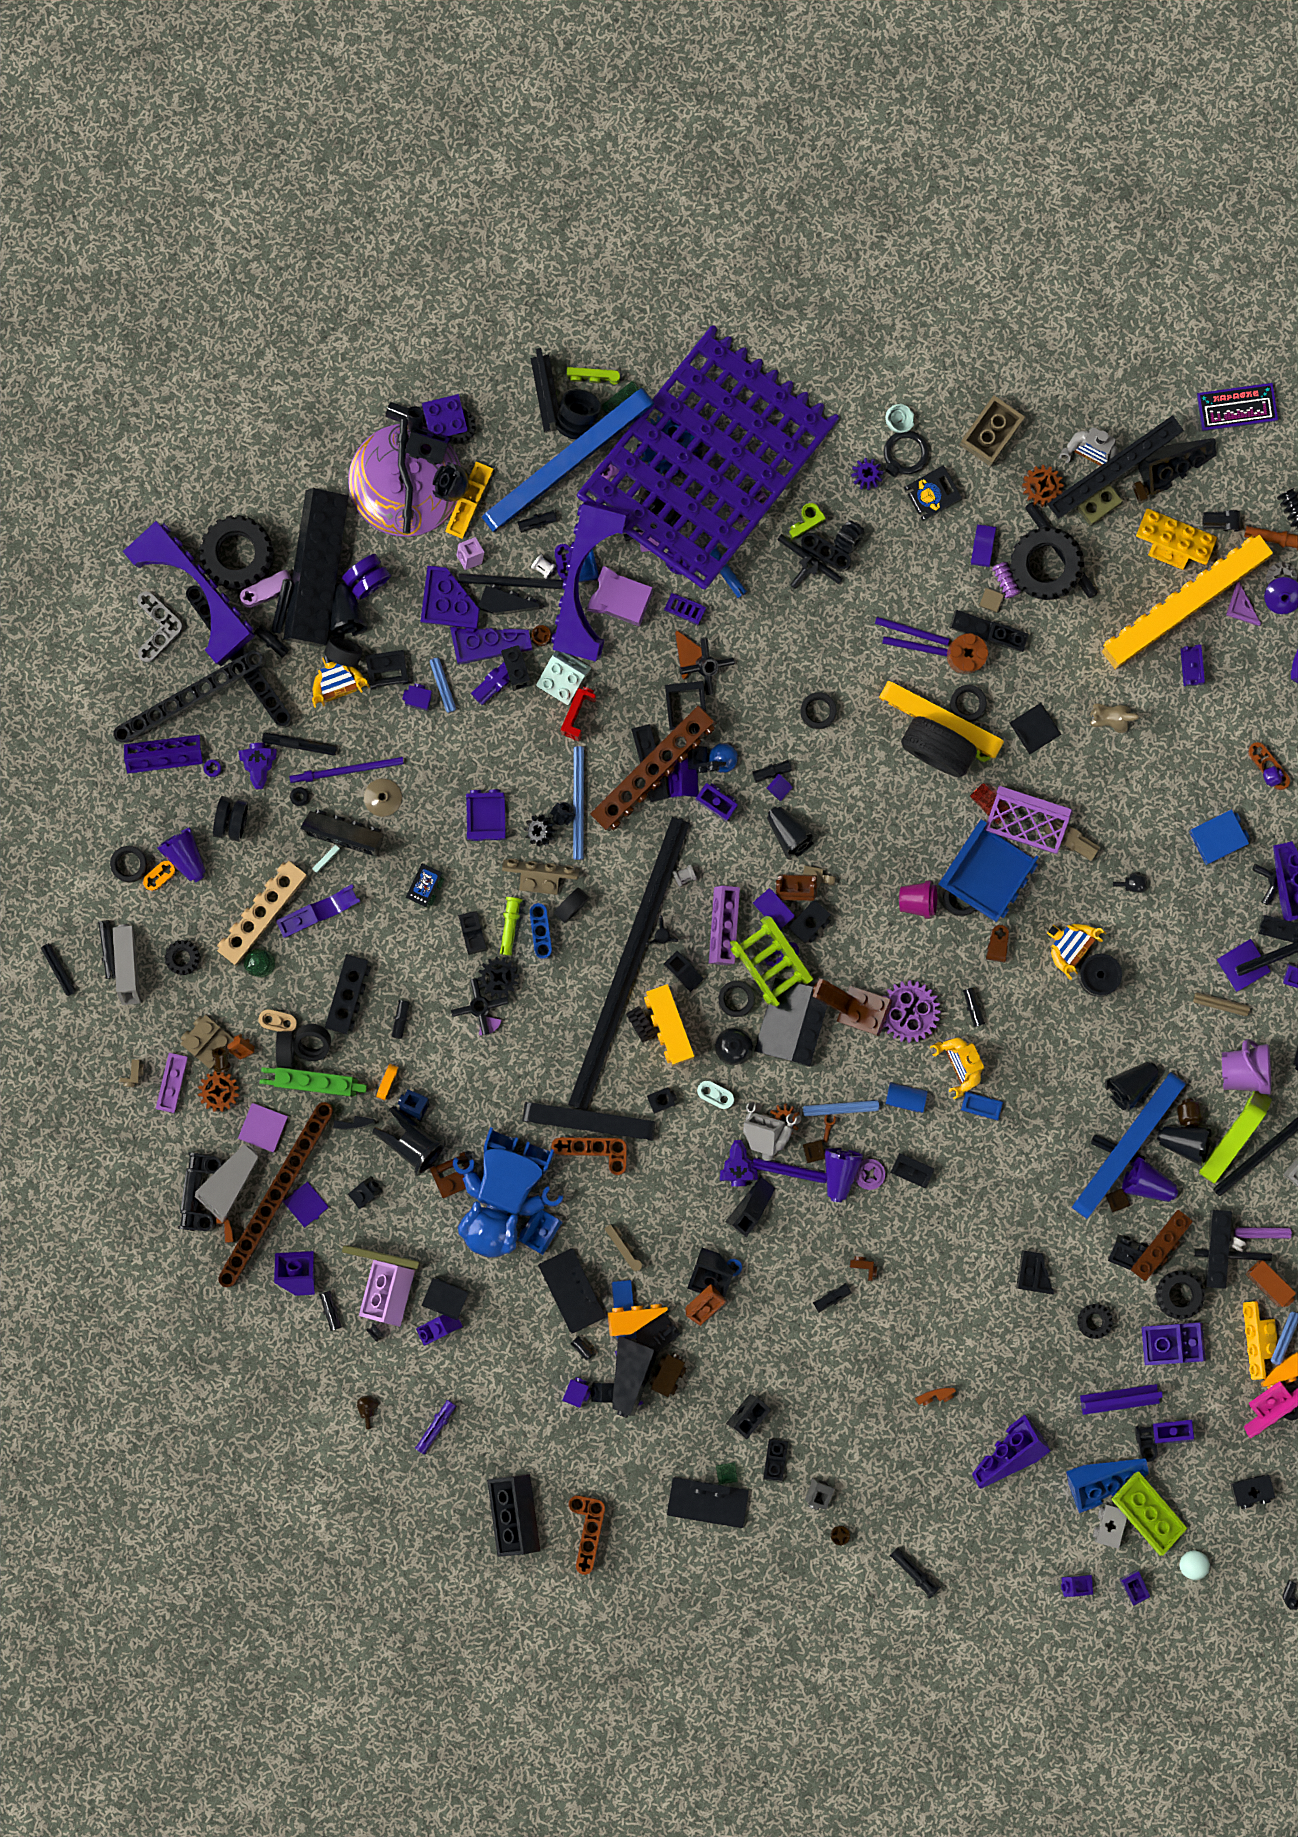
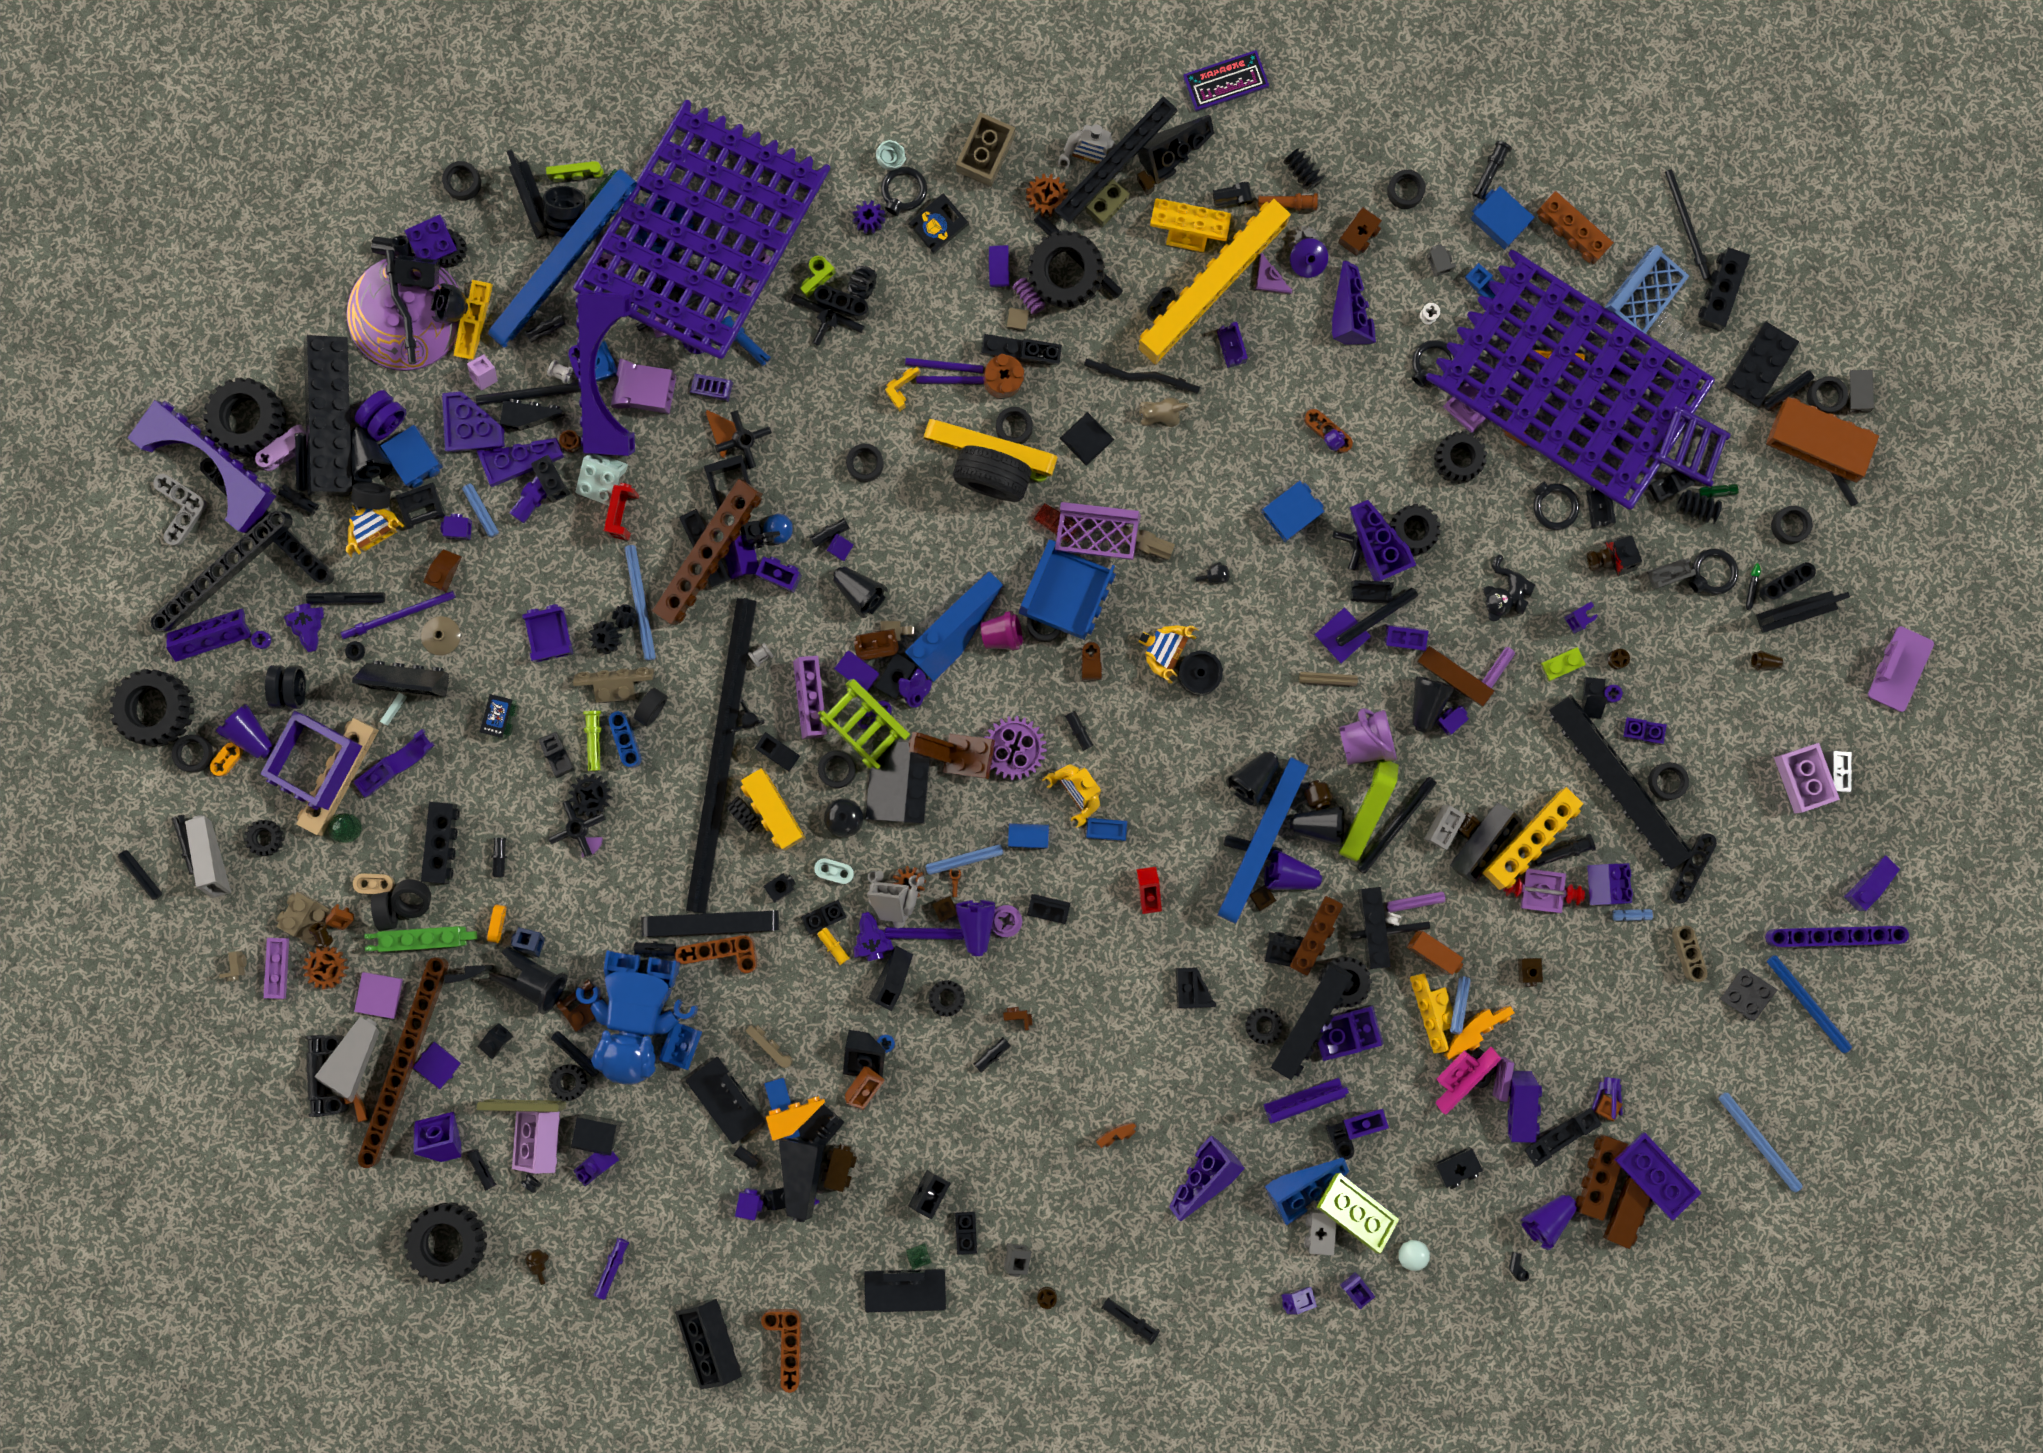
camera: 15 degrees left, 0 degrees up
(81, 795) = (126, 704): none -> black tyre
(265, 913) = (336, 773): none -> dark purple window
(312, 1366) = (421, 1255): none -> black tyre
(388, 621) = (412, 457): none -> blue brick
(397, 736) = (442, 570): none -> reddish brown slope
(427, 1256) = (559, 1091): none -> black tyre
(438, 1219) = (576, 1054): none -> black axle
(480, 349) = (453, 168): none -> black tyre
(519, 1132) = (641, 948): none -> black pin
(696, 1136) = (823, 917): none -> black slope
(701, 1165) = (833, 946): none -> yellow axle
(811, 1236) = (946, 1010): none -> black tyre
(825, 937) = (916, 687): none -> dark purple plate
(862, 654) = (897, 397): none -> yellow bracket
(873, 887) = (953, 630): none -> blue wedge
(1011, 1171) = (1149, 890): none -> red slope
(1064, 664) = (1179, 383): none -> black bar
(1135, 615) = (1157, 301): none -> black beam
(1141, 1324) = (1311, 1022): none -> black brick

